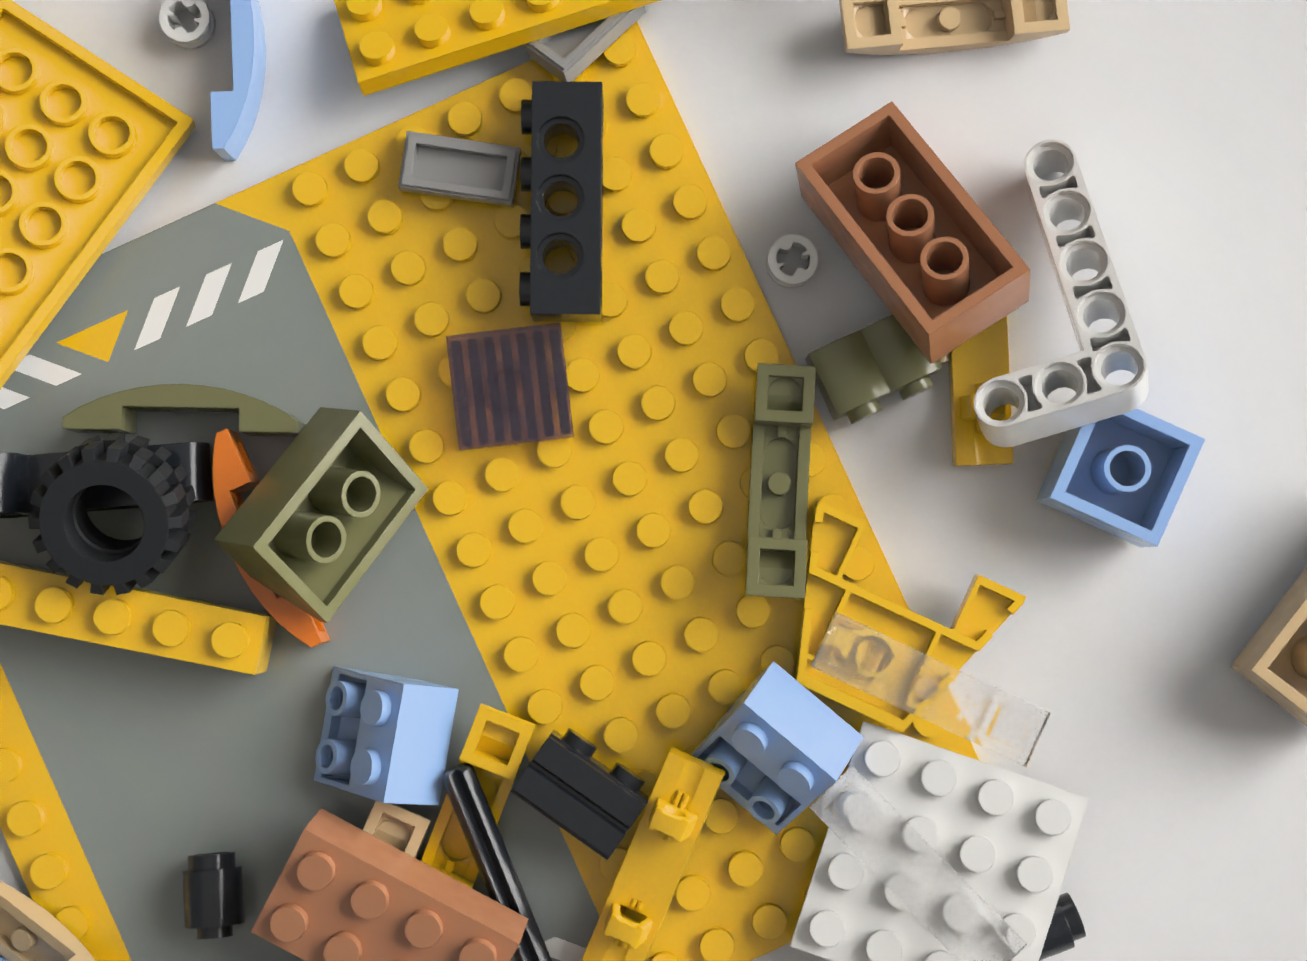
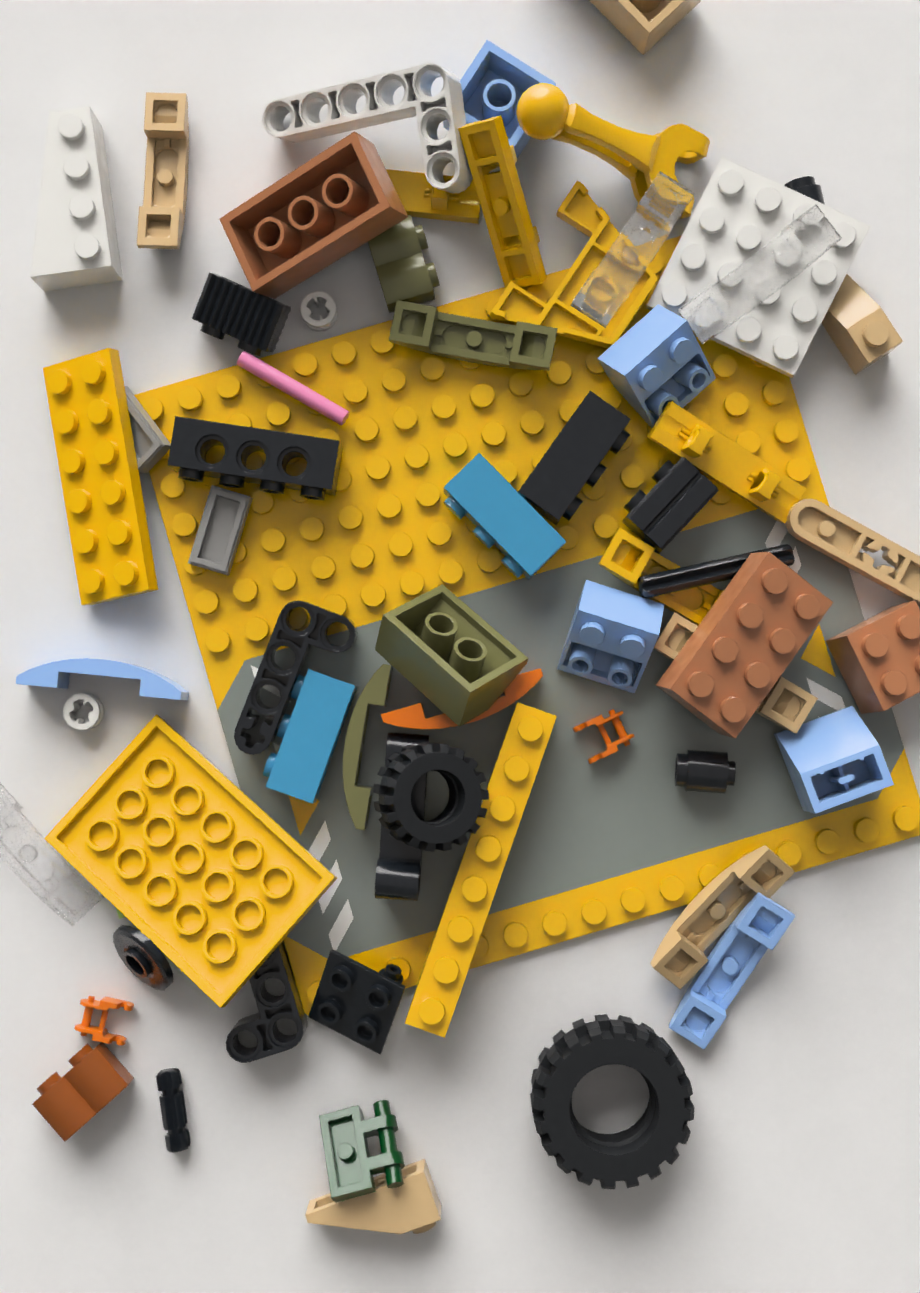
camera: 80 degrees left, 0 degrees up
(189, 334) = (309, 735): none -> dark azure brick
(233, 758) = (610, 747): none -> orange piece
(263, 287) = (284, 679): none -> black beam
(510, 387) = (379, 516): tile -> none
(527, 559) = (502, 517): none -> dark azure brick
(625, 650) = (575, 459): none -> black brick
(674, 240) = (293, 388): none -> bright pink bar
(769, 137) = (241, 313): none -> black brick
(974, 496) = (503, 202): none -> yellow hinge
(1104, 537) = (546, 115): none -> yellow piece

